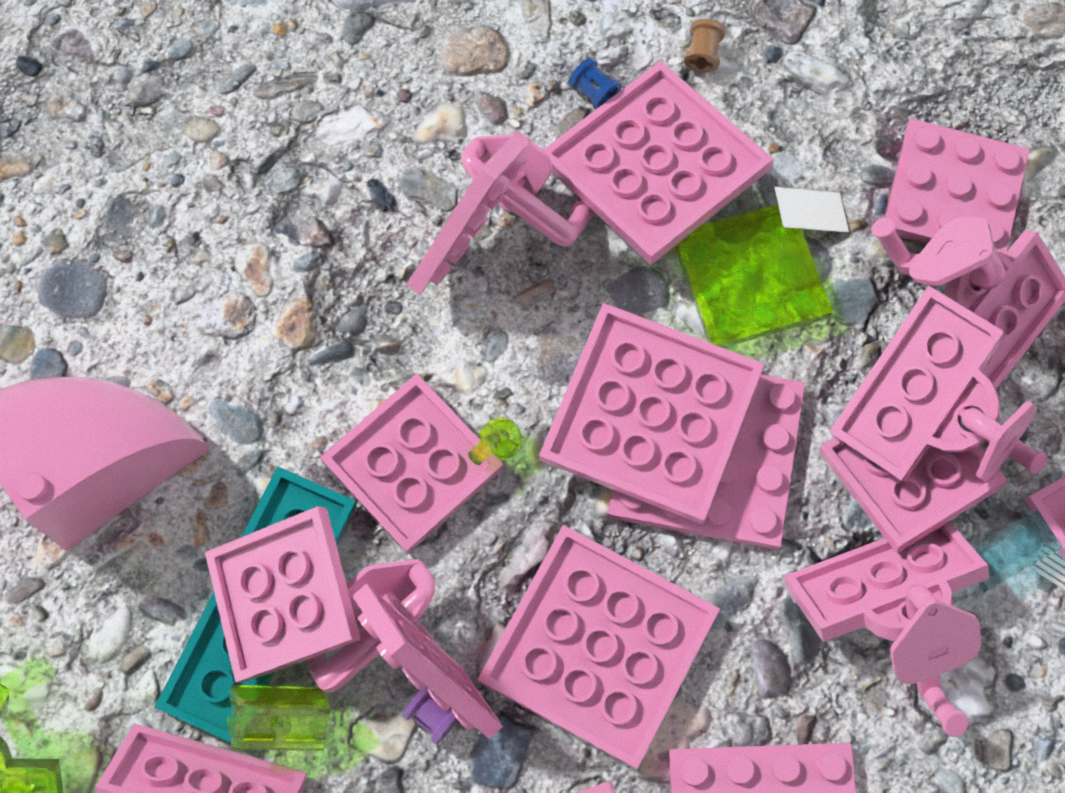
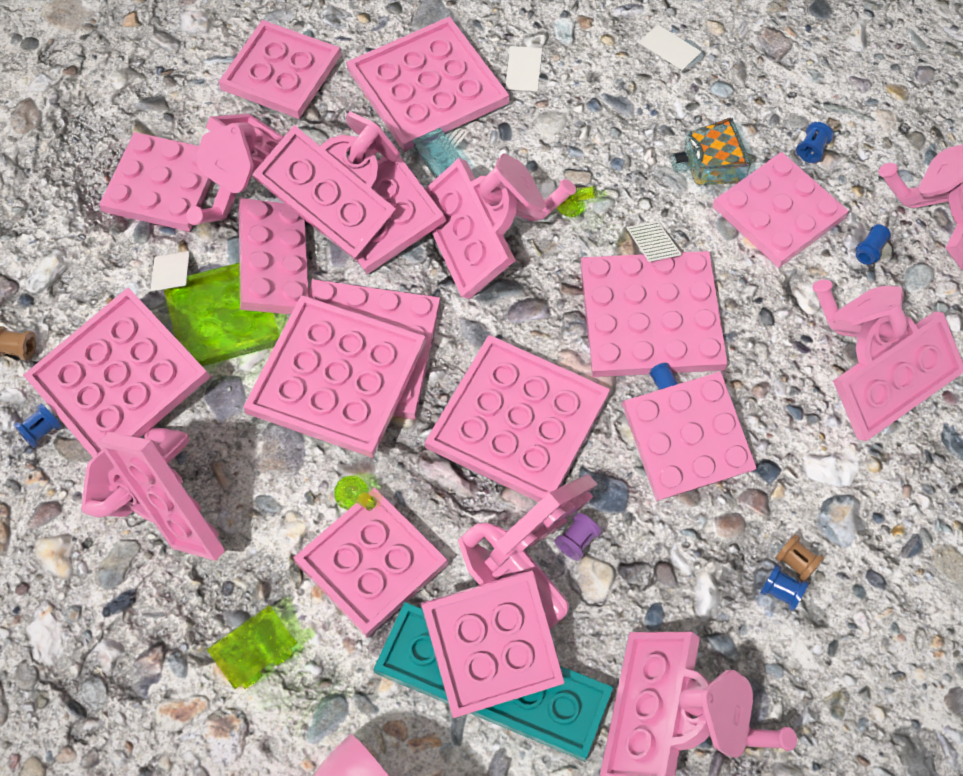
camera: 90 degrees left, 10 degrees down
(278, 718) = (590, 649): clear neon green hinge -> none
(312, 335) = (252, 647): none -> clear neon green bracket
(825, 327) = (271, 257): none -> bright pink plate
(944, 744) = (575, 204): none -> clear neon green plate

